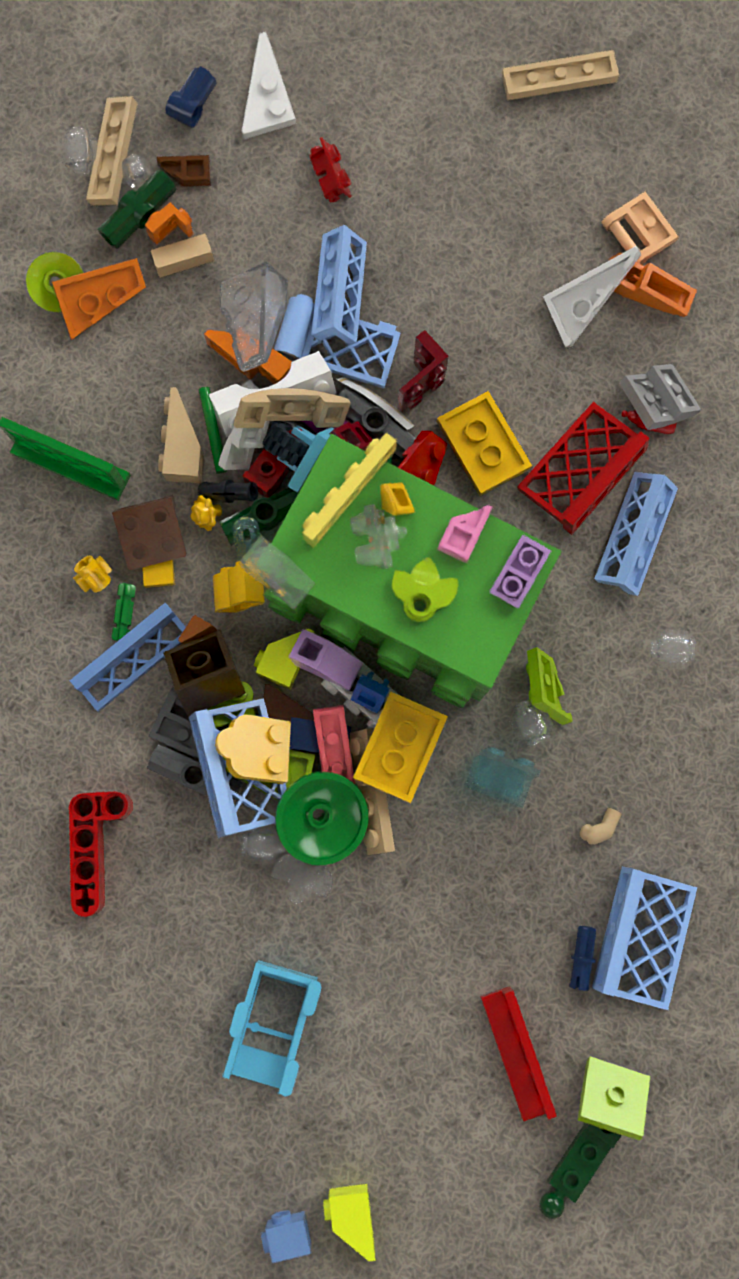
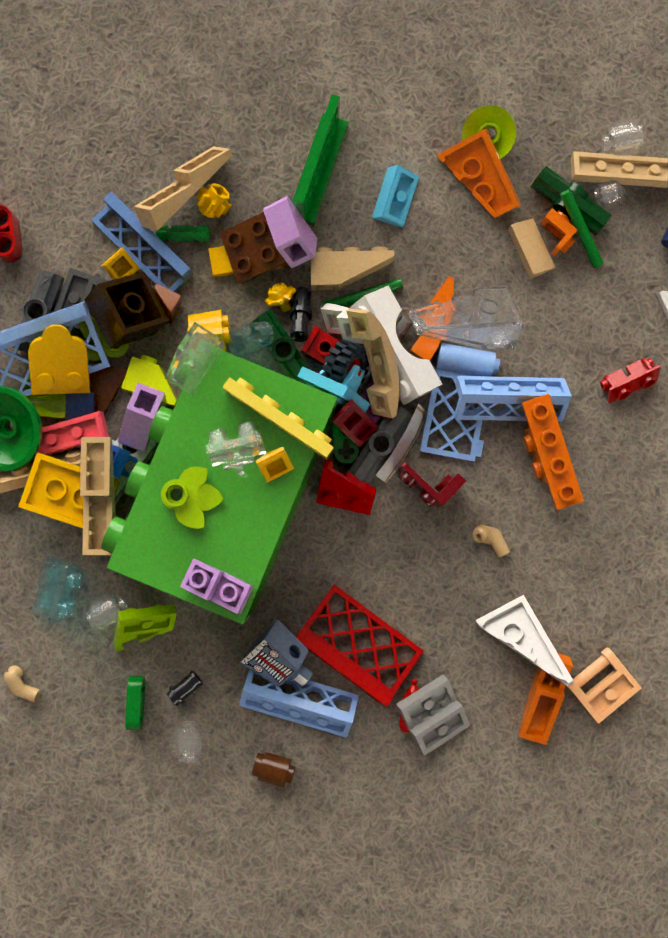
camera: 85 degrees right, 5 degrees up
(67, 595) = (189, 179): none -> tan slope
(109, 387) = (395, 196): none -> medium azure slope
(139, 489) = (290, 232): none -> lavender slope
(153, 680) = (120, 265): none -> yellow slope
(174, 197) = (583, 232): none -> green bar
(187, 170) = (617, 244): reddish brown tile -> none
(399, 253) = (550, 452): none -> orange bracket
(408, 709) = (97, 491): none -> tan slope
(463, 533) = (250, 530): bright pink tile -> none
(480, 322) = (491, 536): none -> tan arm
(484, 443) = (372, 549): yellow plate -> none
(589, 546) = (278, 656): none -> sand blue torso
(616, 650) = (184, 688): none -> black pin
(628, 702) = (135, 703): none -> green beam
(706, 563) = (273, 769): none -> reddish brown brick

